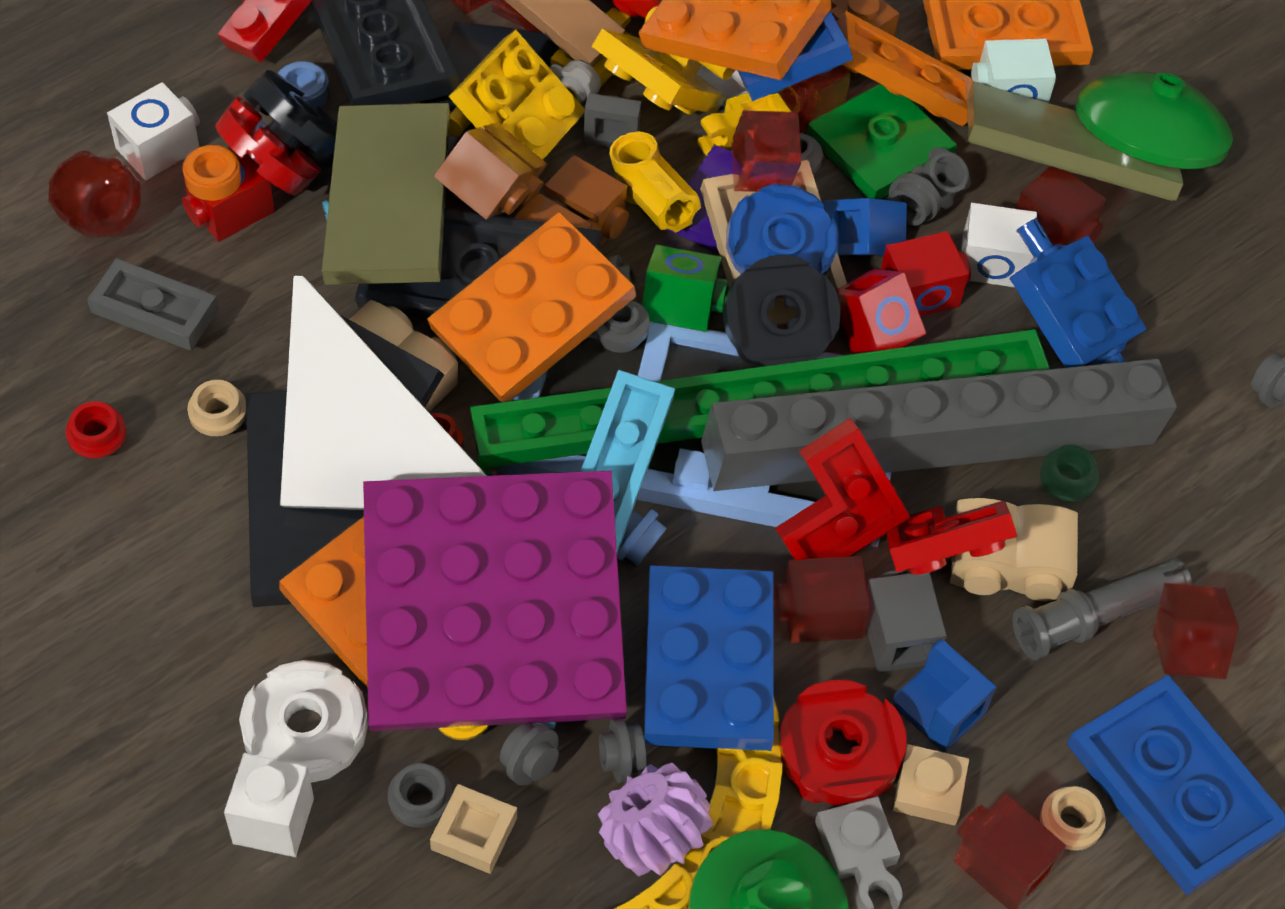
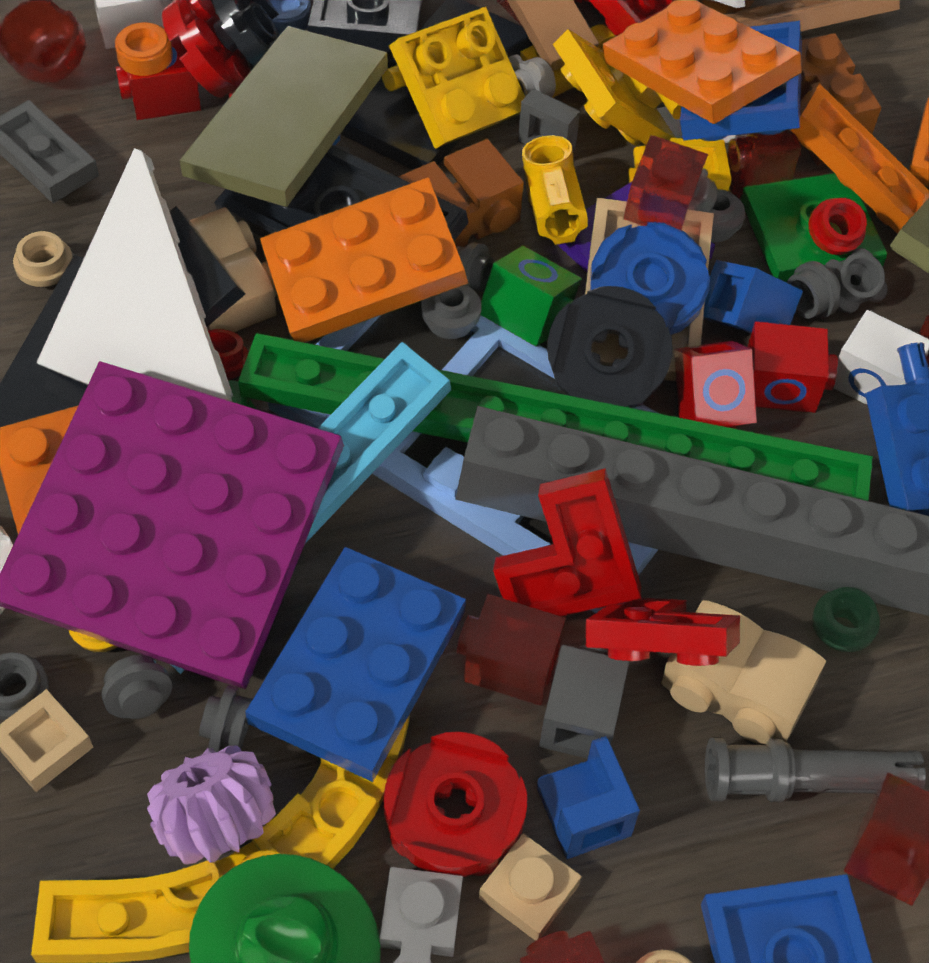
camera: 25 degrees right, 0 degrees up
(492, 171) = (389, 121): piece -> none
(640, 537) = (361, 517): medium blue plate -> none
(915, 124) = (847, 217): none -> red plate

